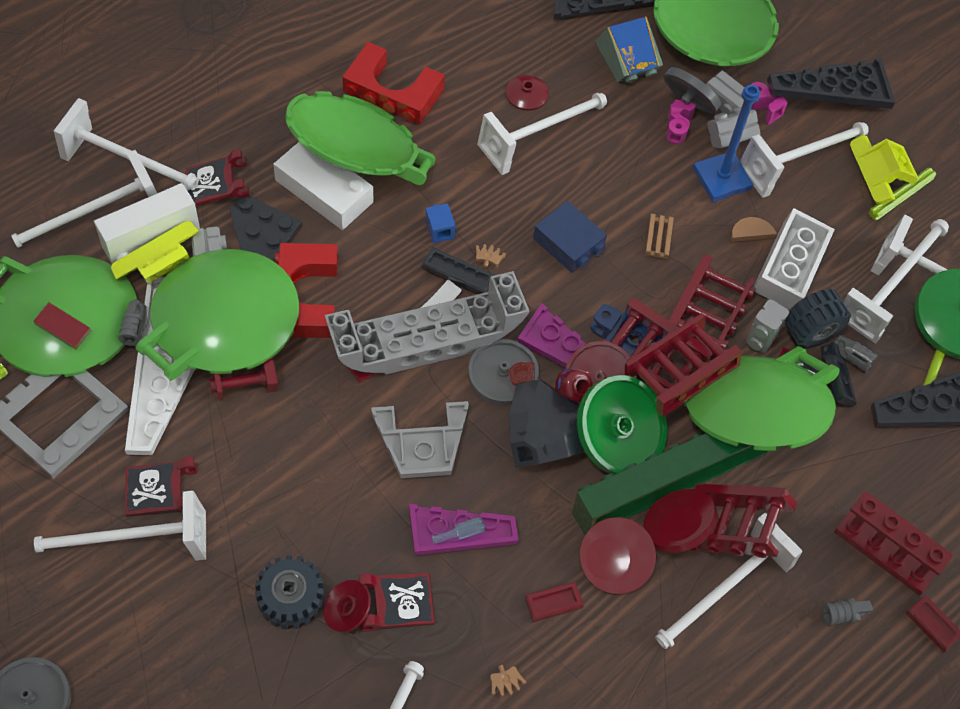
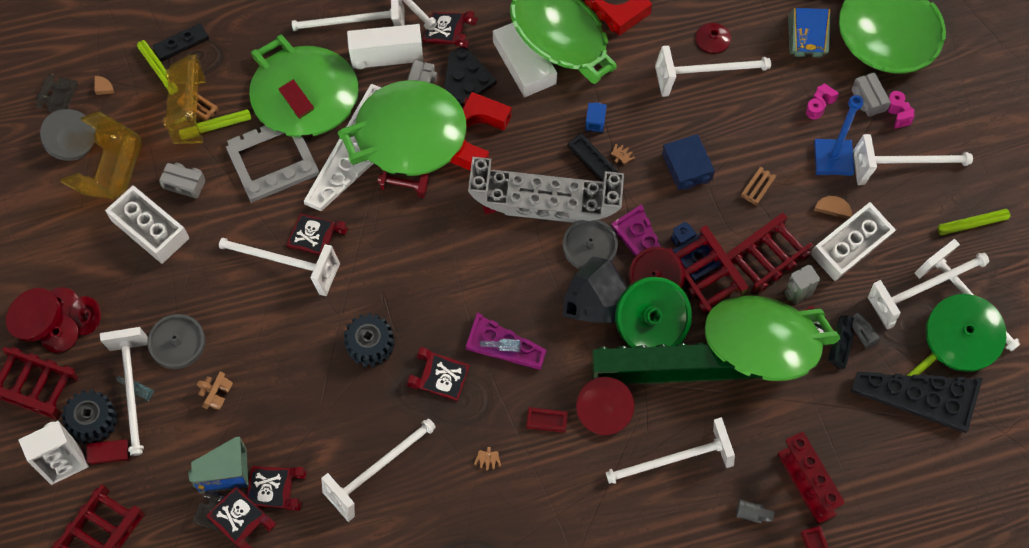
camera: 30 degrees right, 5 degrees up
(132, 323) = (345, 113): dark grey hinge -> none
(158, 255) = (382, 71): neon yellow plate -> none
(342, 598) = (402, 364): dark red dish -> none
(422, 450) = (505, 278): light grey wing -> none
(446, 293) = (575, 172): white sticker -> none
(522, 372) = (602, 250): clear red tile -> none
(573, 384) = (630, 271): dark red head -> none
(681, 520) = (662, 399): dark red piece -> none
(687, 385) = (721, 304): dark red fence -> none
(692, 90) = (837, 79): dark grey piece -> none
(723, 126) = (864, 121): light grey brick -> none
(753, 499) = (705, 397): dark red fence -> none
(817, 318) = (843, 292): black wheel -> none
(839, 83) = (970, 116): black wing -> none
(882, 165) = (967, 192): neon yellow plate -> none

